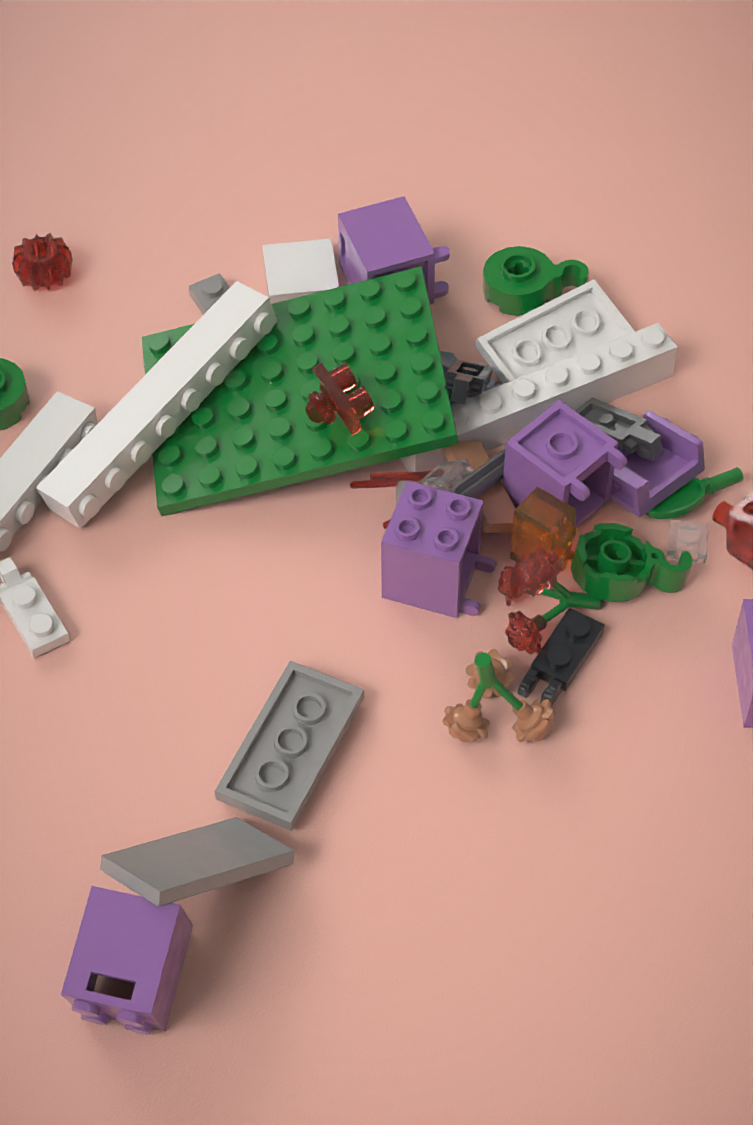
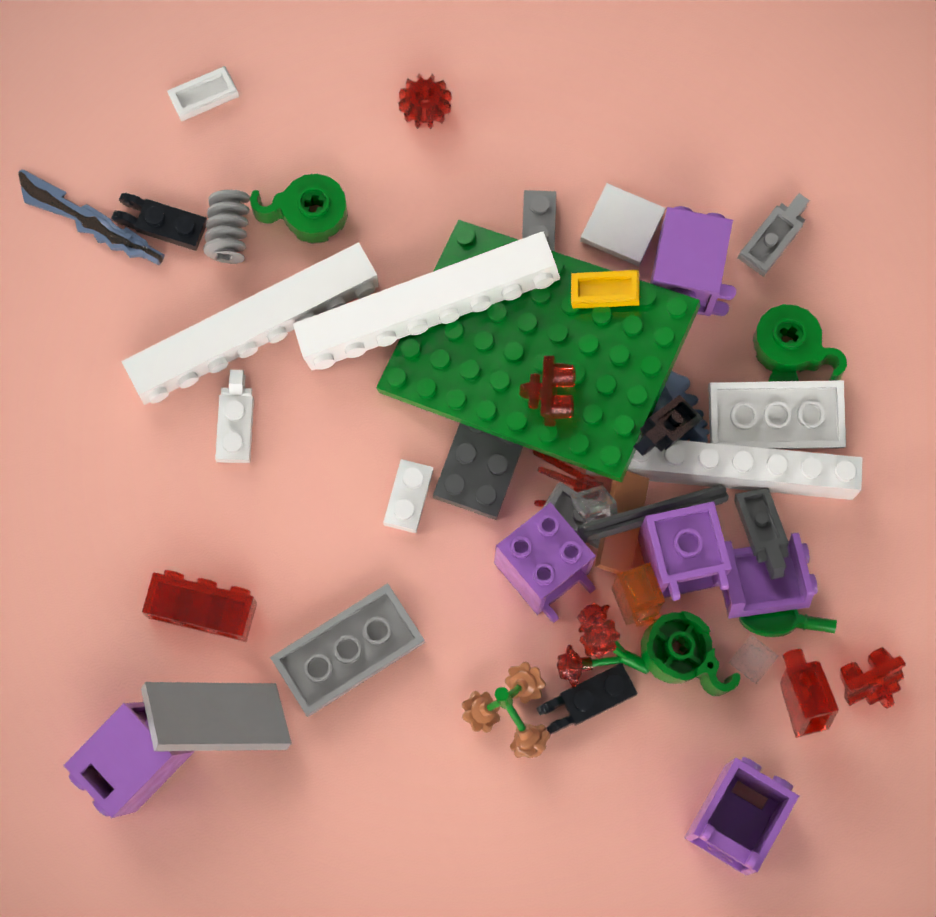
camera: 30 degrees right, 20 degrees up
(106, 788) = (200, 605): none -> clear red brick
(255, 583) = (408, 496): none -> white plate
(309, 525) = (477, 471): none -> dark grey plate
(327, 301) = (605, 289): none -> yellow tile
(445, 212) = (774, 236): none -> light grey hinge

